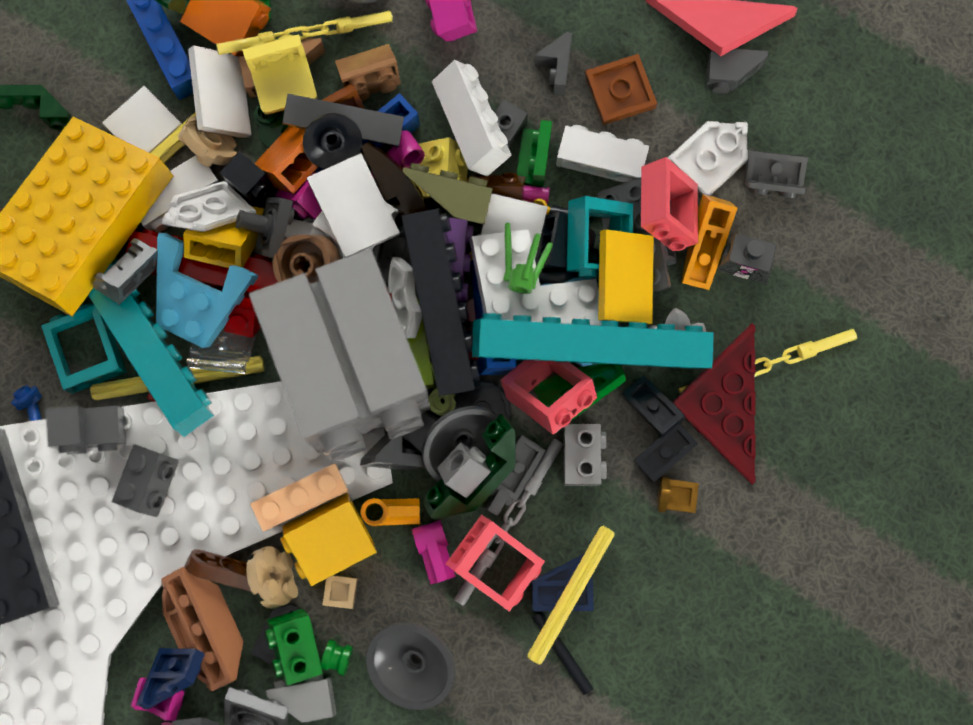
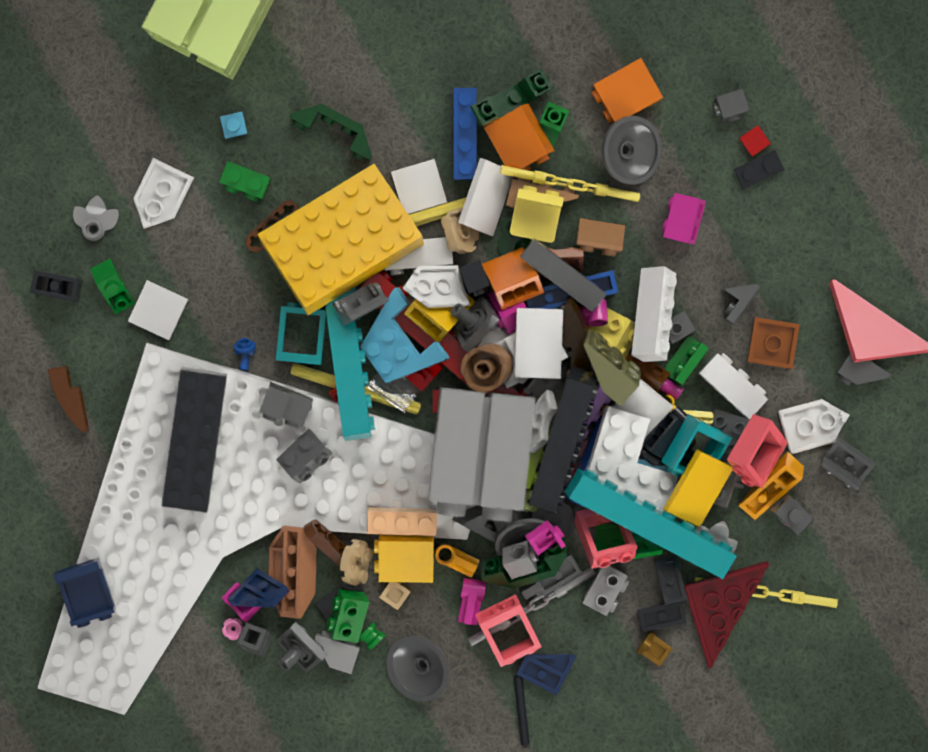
camera: 25 degrees right, 10 degrees up
(326, 152) = (547, 290): black dish -> none
(477, 423) = (544, 537): none -> dark pink bracket
(523, 278) = (628, 455): bright green plant -> none
(570, 595) = (547, 677): light yellow axle -> none

